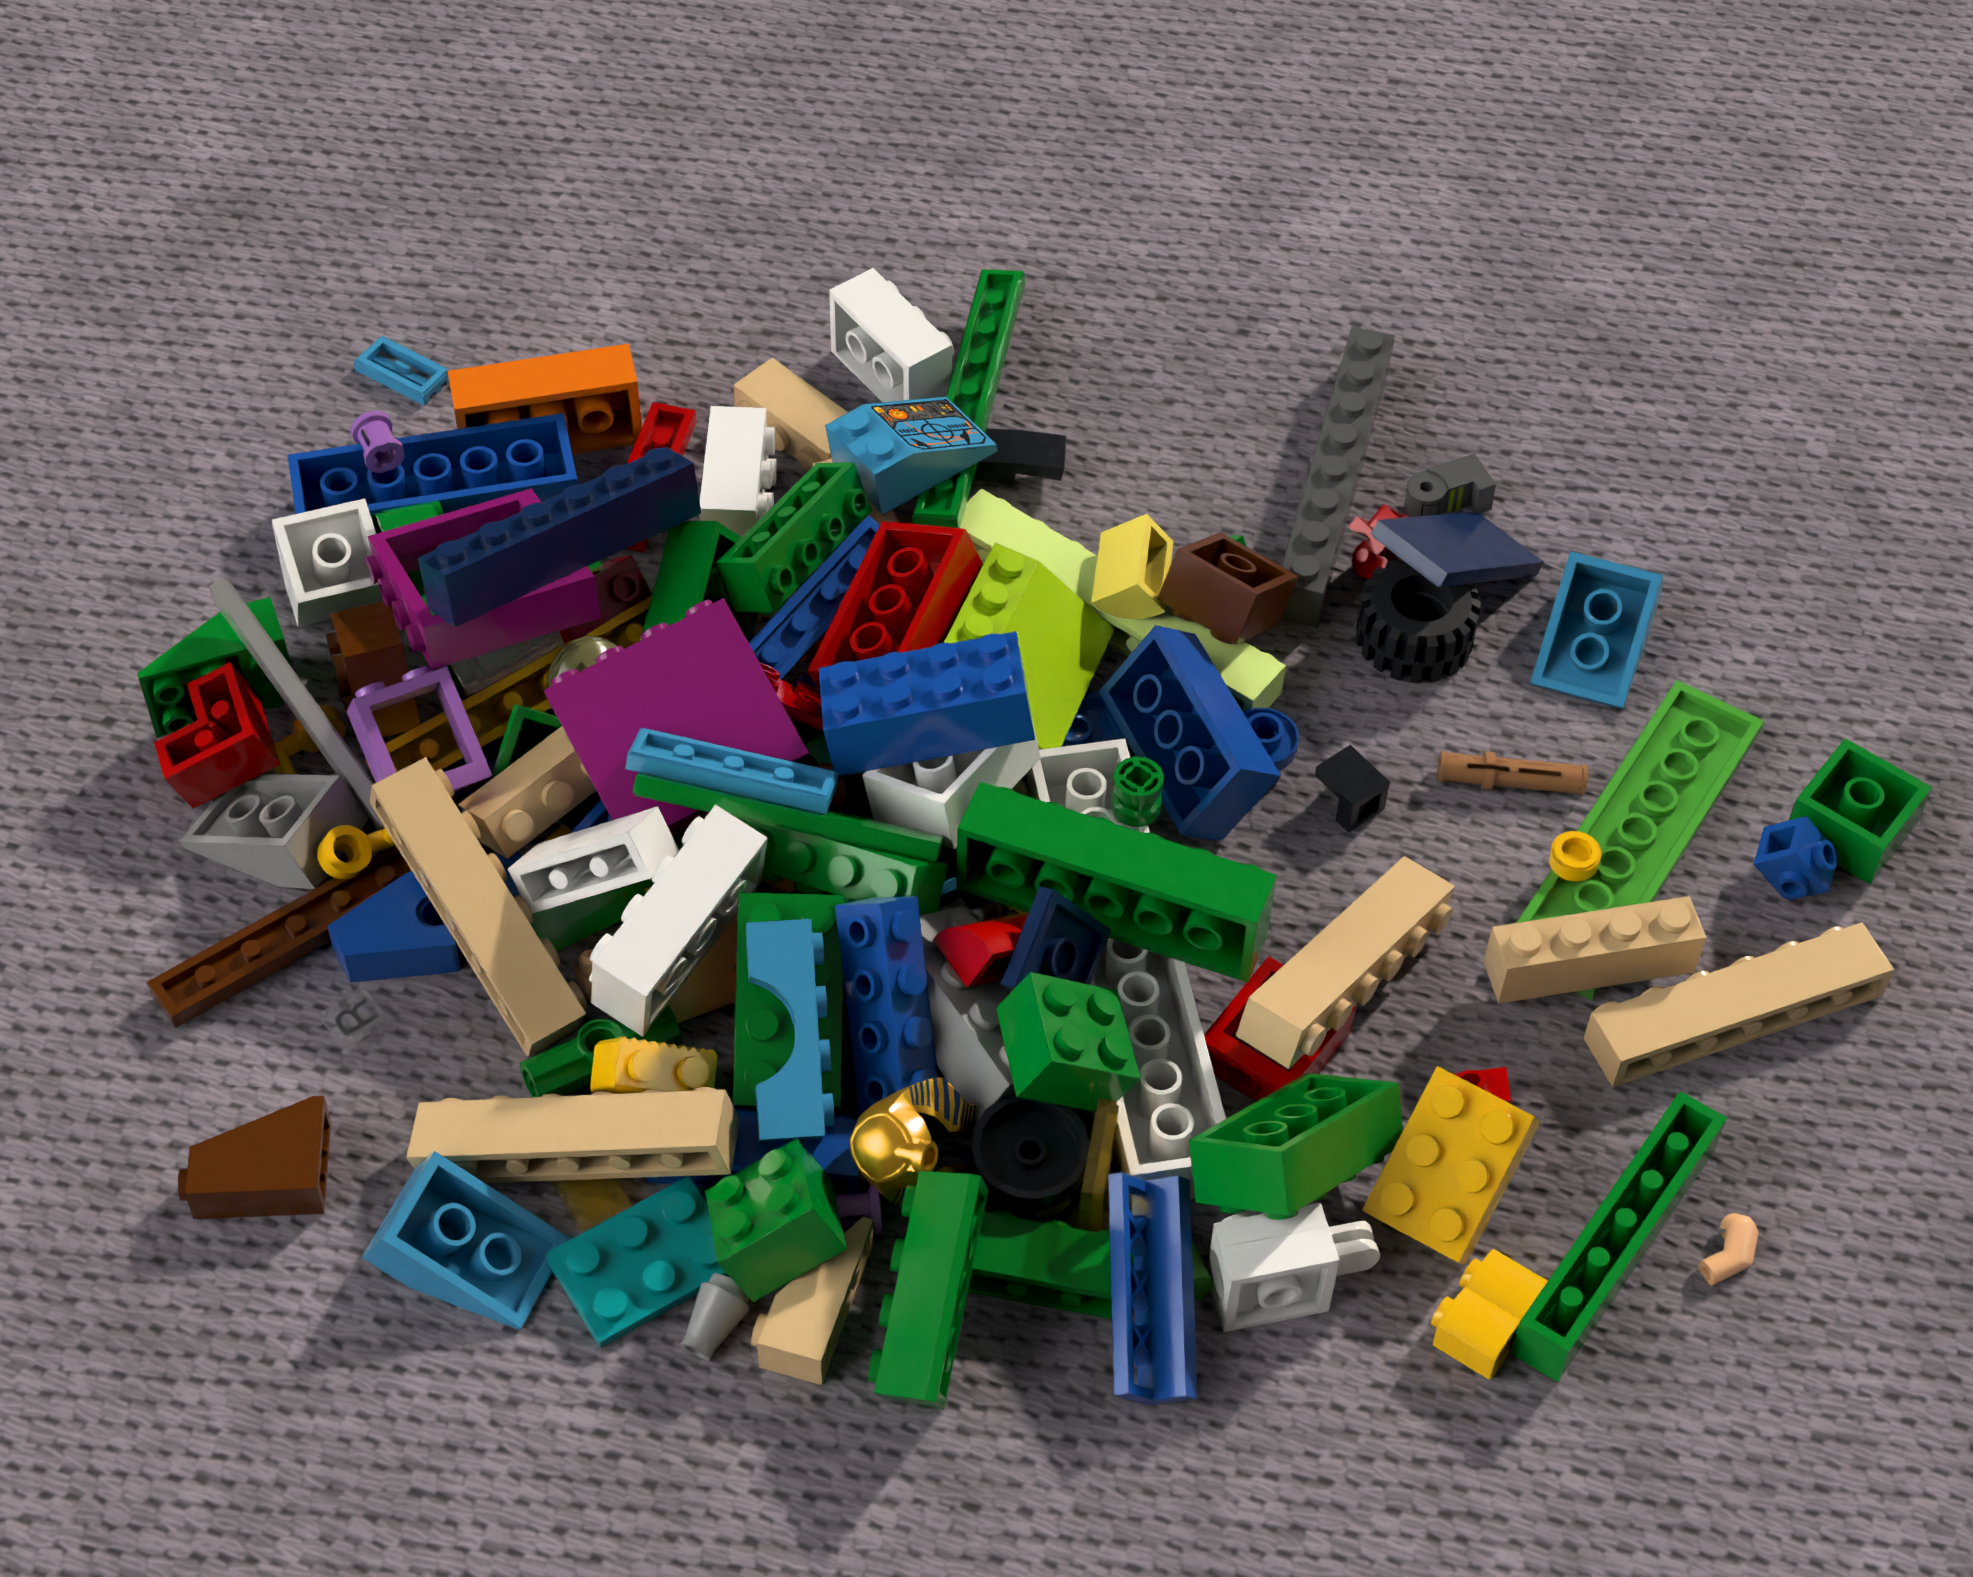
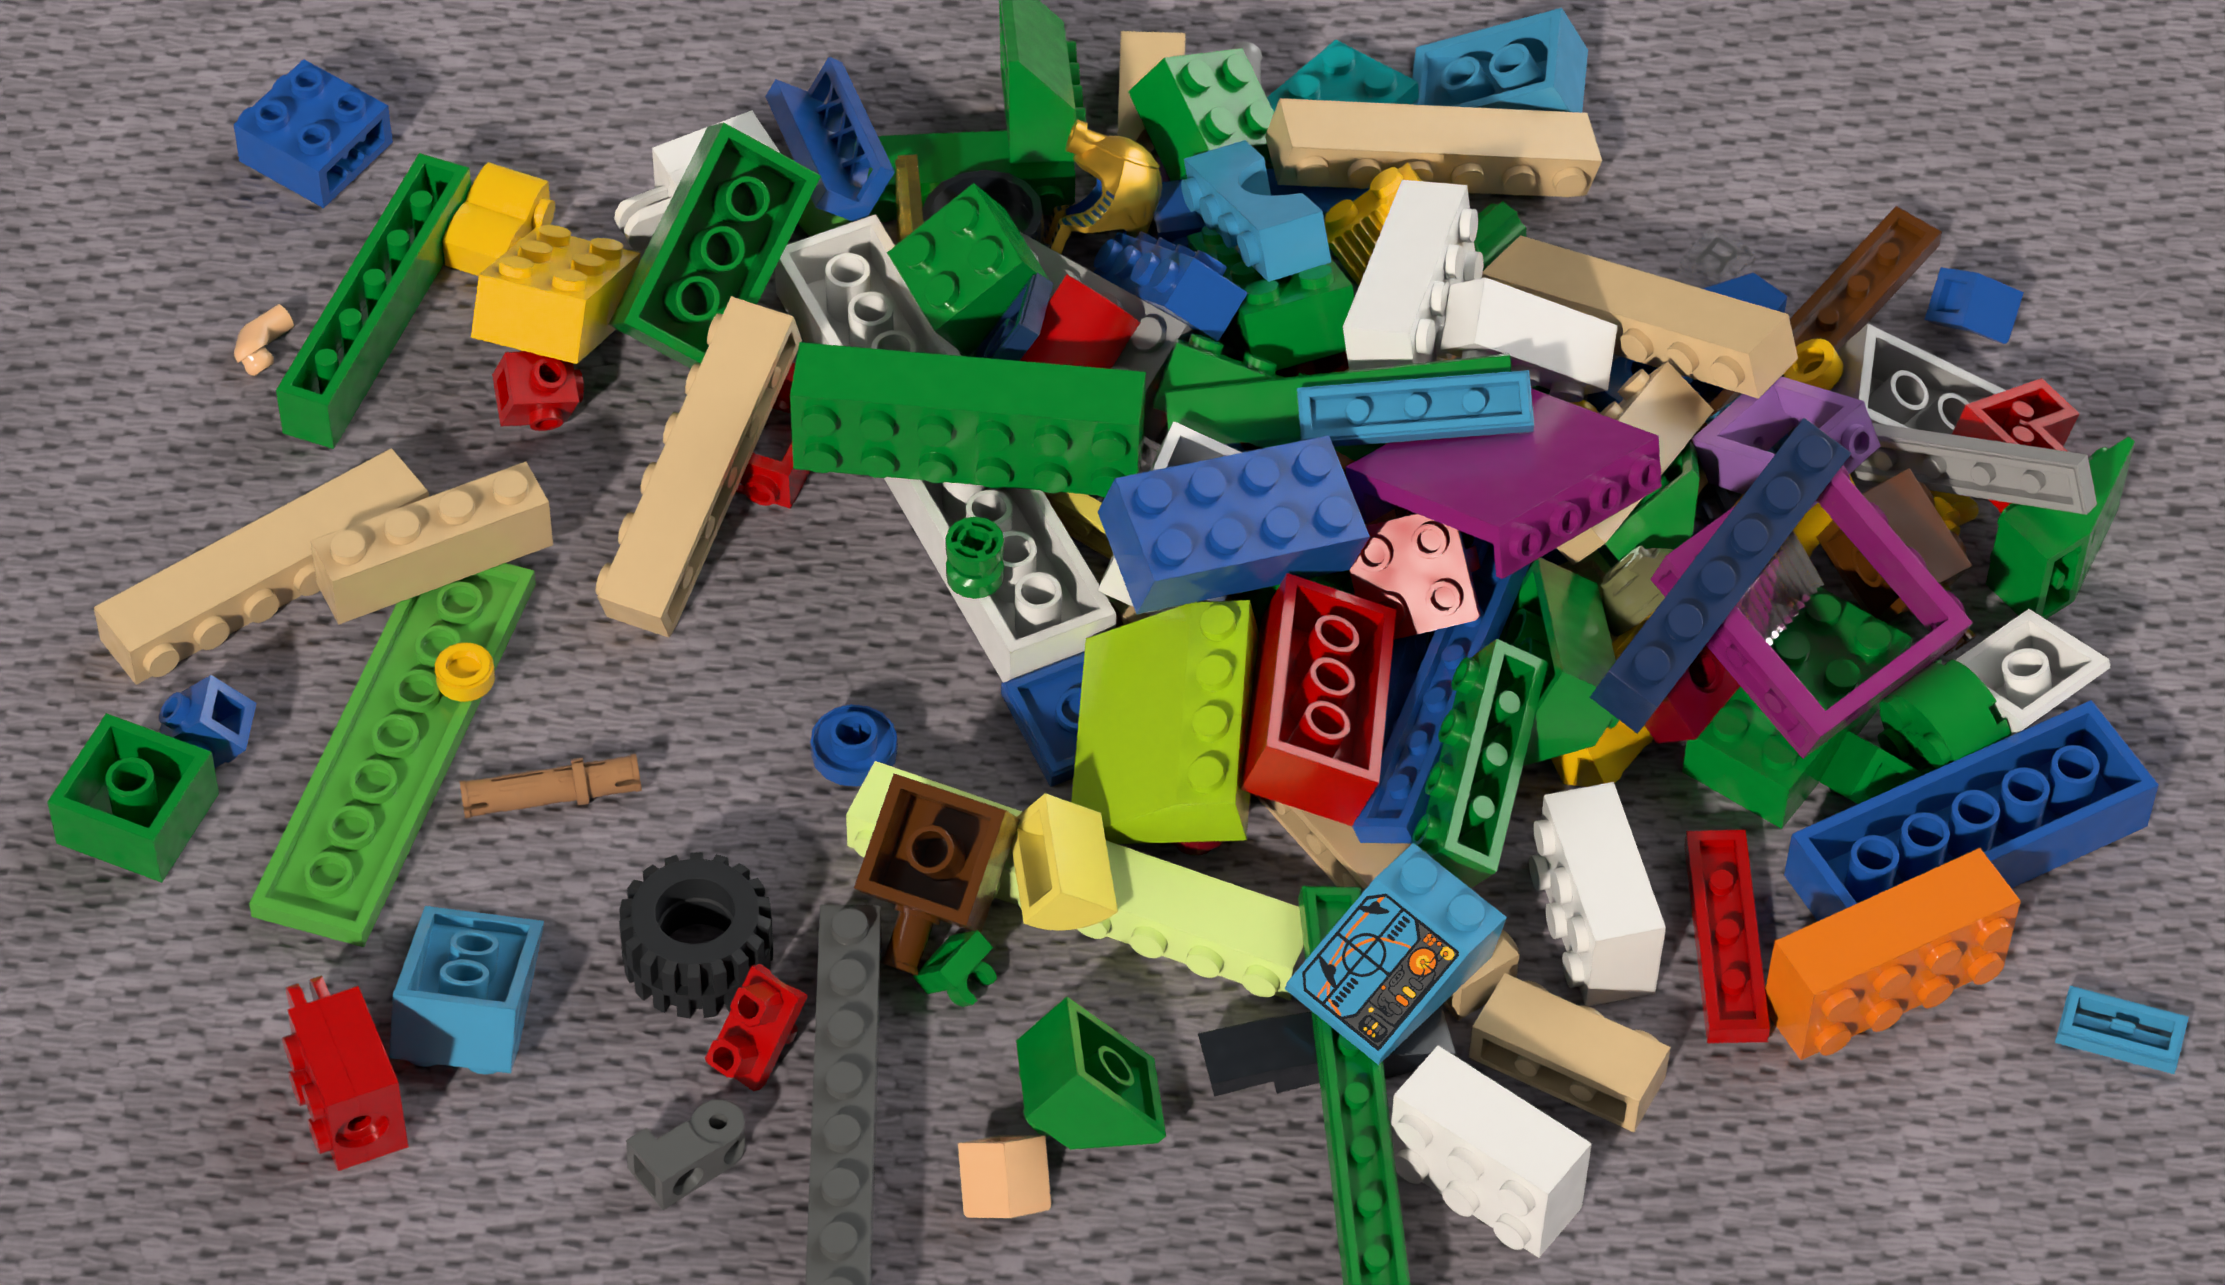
camera: 165 degrees right, 0 degrees up
(161, 913) = (1974, 304): none -> blue panel
(262, 1166) = (1723, 102): reddish brown slope -> none
(378, 441) = (2050, 793): medium lavender bush -> none
(1153, 455) = (1088, 1082): none -> green slope
(1189, 723) = (938, 694): blue brick -> none
(1226, 431) = (1004, 1176): none -> light nougat panel
(1357, 785) = (733, 710): black panel -> none
(1456, 548) = (659, 1003): dark blue tile -> none
(1670, 1454) = (313, 133): none -> blue brick
(1700, 561) = (343, 1075): none -> red brick

